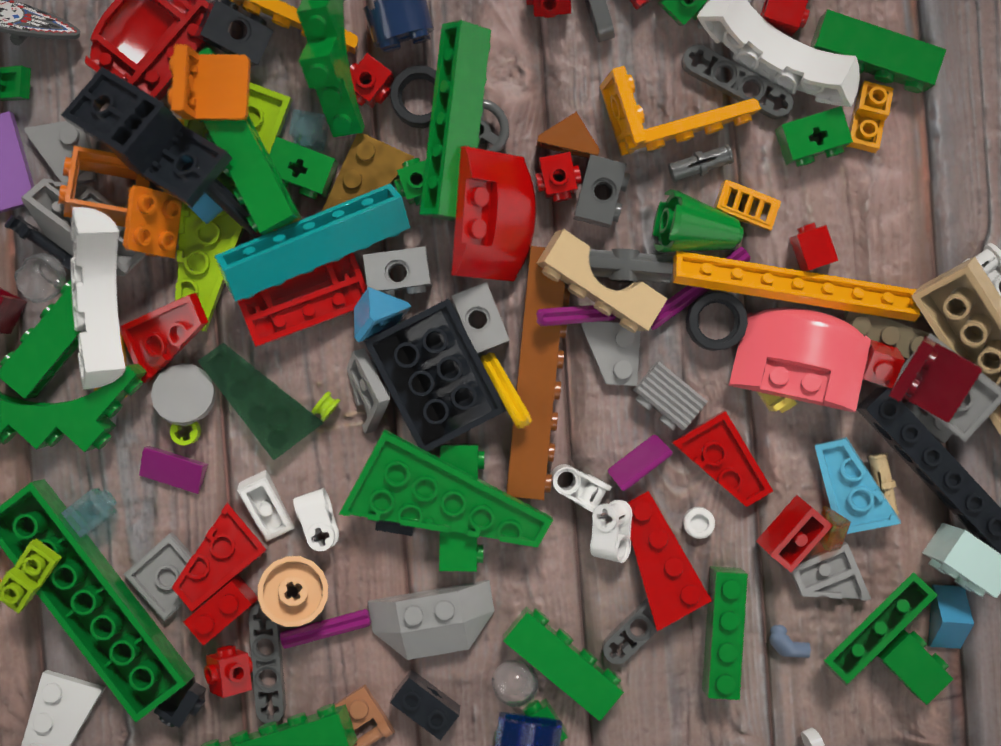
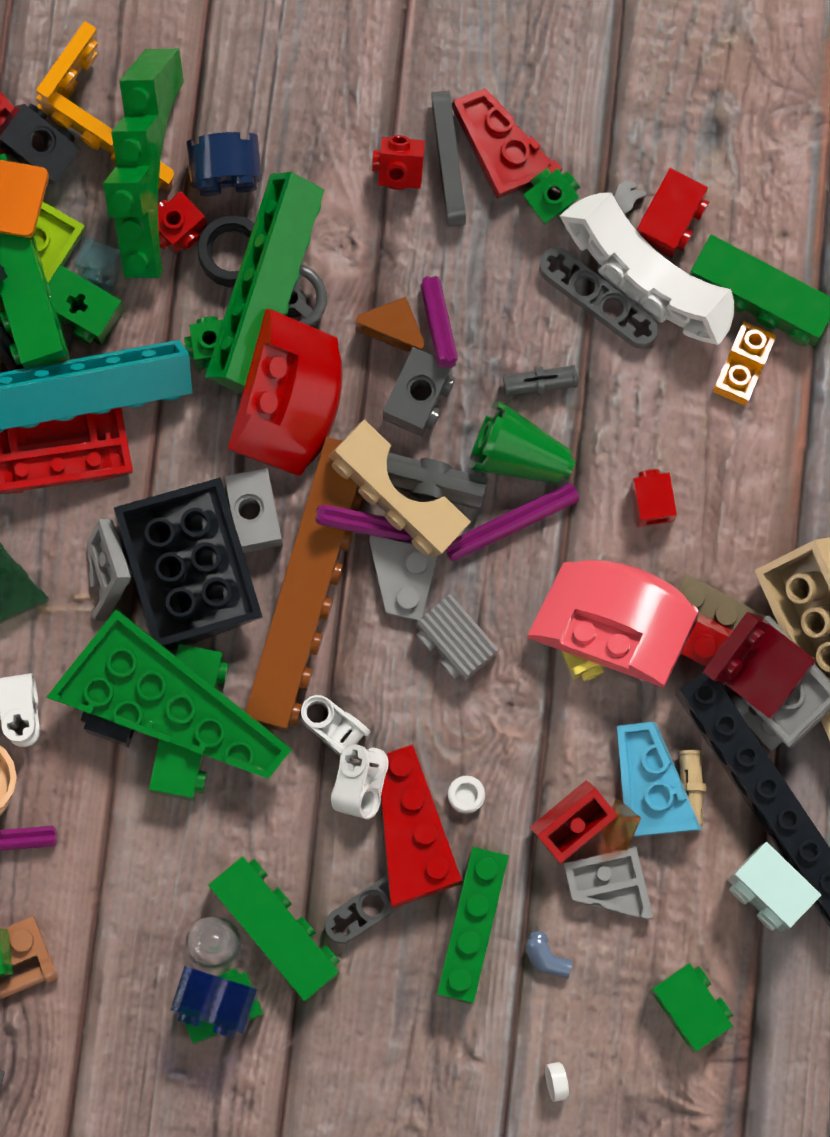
camera: 10 degrees right, 10 degrees down
(325, 406) = (54, 579): lime bush -> none
(366, 168) = (155, 318): pearl gold wing -> none
(377, 313) = (135, 480): dark azure slope -> none
(413, 259) = (150, 428): light grey brick -> none
(425, 704) = (101, 947): black brick -> none
(433, 619) = (130, 850): light grey wedge -> none
(506, 391) = (266, 594): yellow axle -> none
(561, 166) = (370, 354): red brick -> none
(608, 128) = (439, 322): none -> magenta axle
(628, 117) = (523, 338): light orange bracket -> none
(639, 462) = (408, 710): magenta slope -> none
(725, 458) = (509, 722): red wing -> none
(736, 308) = (517, 536): black tyre -> none
(740, 190) = (581, 420): light orange slope -> none
(794, 286) = (622, 536): light orange plate -> none
(828, 125) = (689, 361): green brick -> none
(880, 628) = (656, 953): green brick -> none
(949, 617) = (743, 960): dark azure slope -> none

